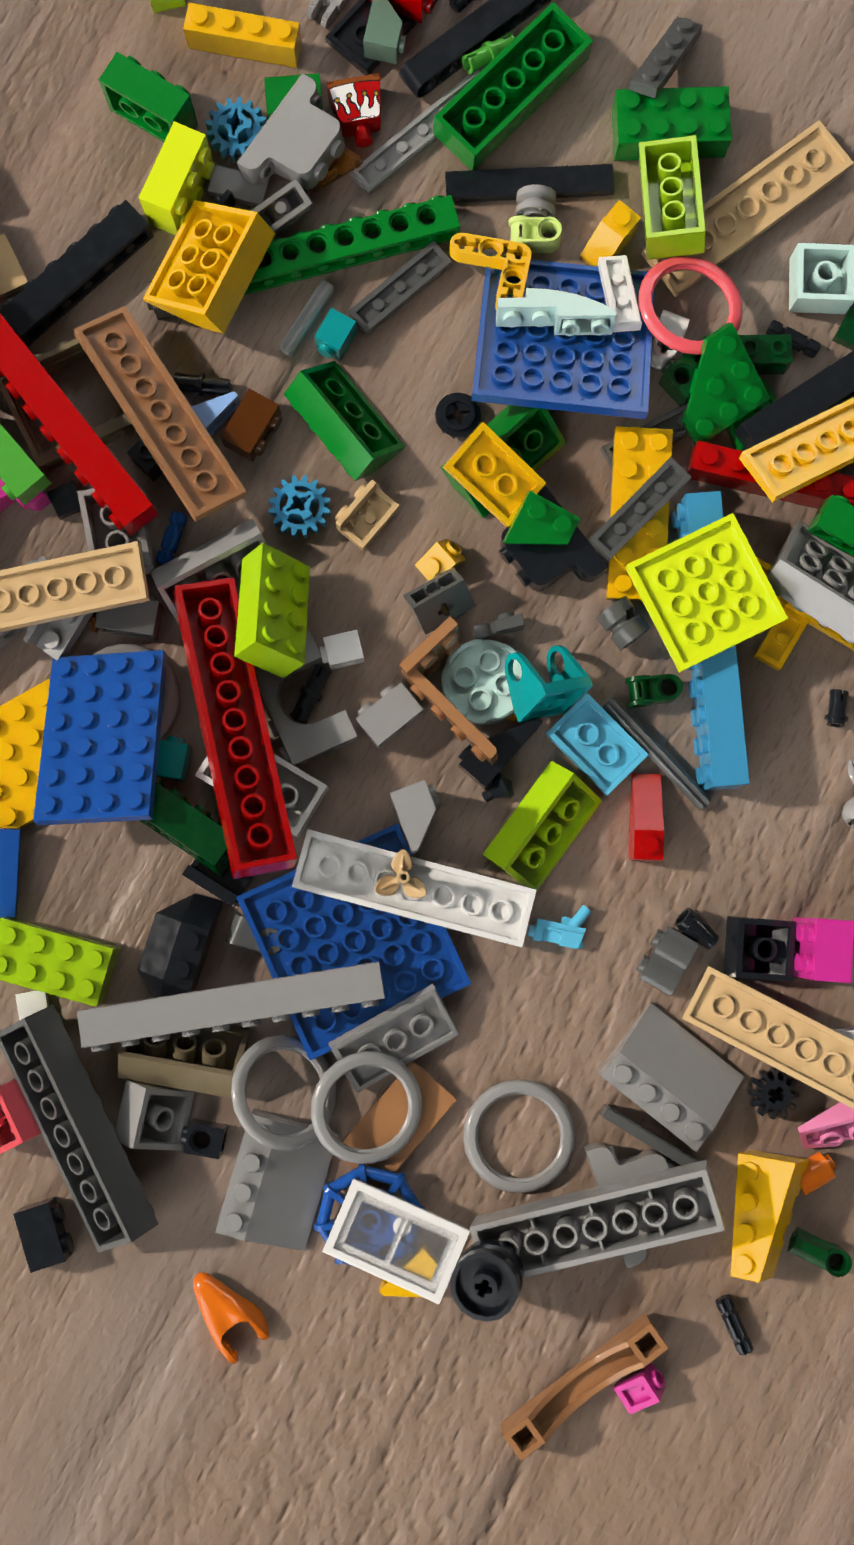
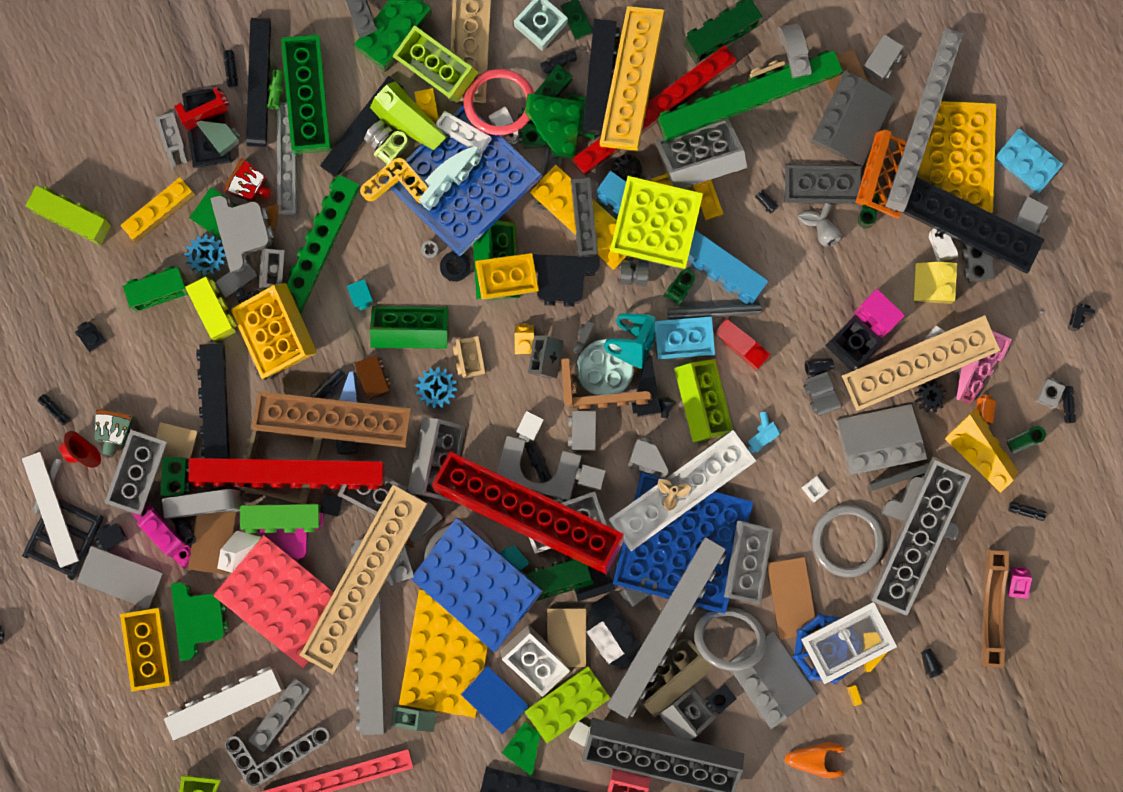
camera: 50 degrees left, 0 degrees up
(39, 79) = (90, 336): none -> black bracket
(71, 879) = (534, 660): none -> white slope
(131, 895) = (568, 635): none -> tan tile
(171, 537) = (397, 467): blue axle -> none
(272, 611) = (484, 445): lime brick -> none
(306, 318) = (337, 302): light grey axle -> none
(336, 1071) = (743, 613): light grey wedge -> none
(339, 767) = (590, 477): none -> light grey brick
(340, 1298) = (854, 695): none -> yellow tile
(400, 288) = (363, 240): dark grey plate -> none
(447, 366) = (423, 249): none -> light grey bush
(454, 1361) = (931, 664): none -> black cone
(487, 1280) = (911, 619): black wheel -> none
(541, 523) = (550, 273): green wing -> none
(547, 1045) = (815, 489): none -> white tile
(583, 210) = (402, 113): none -> lime wedge
(743, 506) = (624, 160): none -> black gear

